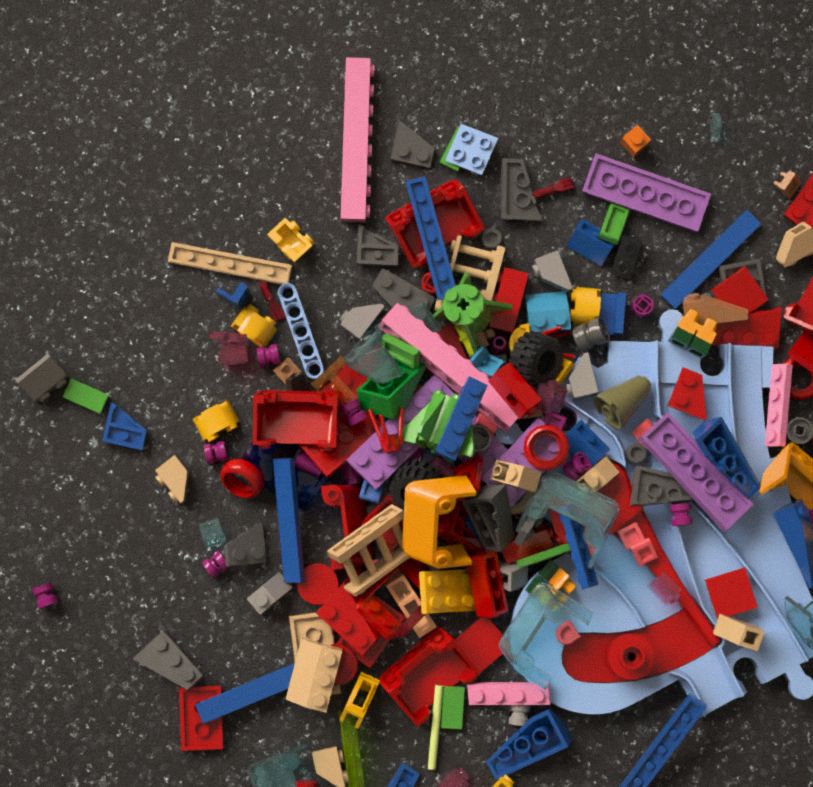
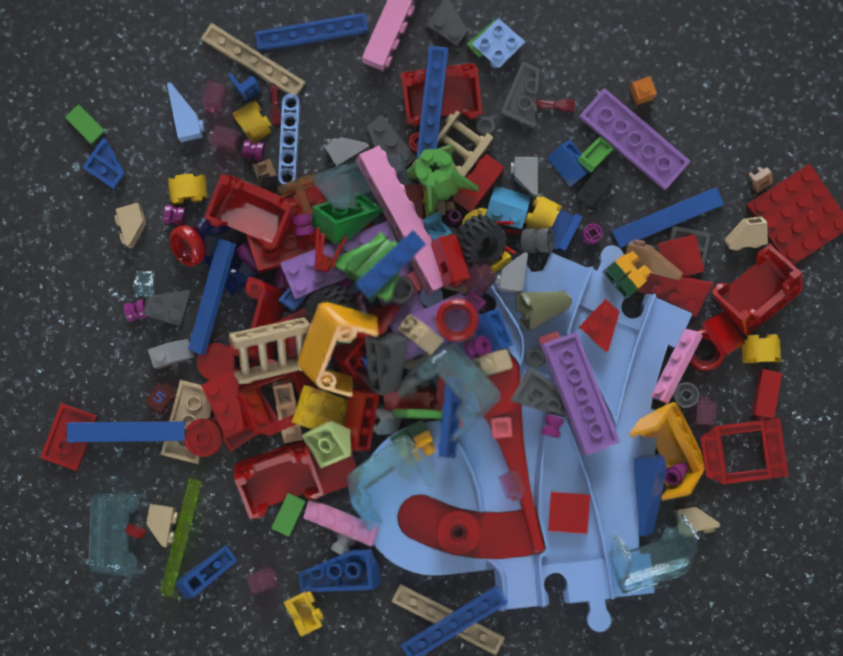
camera: 25 degrees right, 0 degrees up
(42, 379) = (52, 93): light grey slope -> none
(169, 661) = (62, 378): dark grey wing -> none
(187, 350) = (186, 121): none -> light blue slope
(206, 316) = (214, 96): none -> clear pink brick
(226, 337) = (223, 120): clear pink plate -> none
(277, 211) = (311, 32): none -> blue tile
(277, 641) = (161, 397): none -> clear red brick
(289, 240) = (311, 59): yellow cylinder -> none
(314, 675) = (178, 438): tan slope -> none
(368, 684) = (223, 464): yellow window -> none
(375, 250) = (381, 97): dark grey wing -> none
(401, 351) = (366, 188): bright green tile -> none
(435, 727) = (266, 526): yellowish green bar -> none
(466, 620) = (328, 443): none -> yellowish green slope
(567, 633) = (411, 490): coral tile -> none
(637, 745) = (434, 612): none -> tan tile
(644, 552) = (506, 445): coral tile -> none
(715, 127) = (717, 106): clear light blue tile -> none
(724, 453) = (611, 386): blue wedge -> none
(739, 632) = (562, 549): tan slope -> none

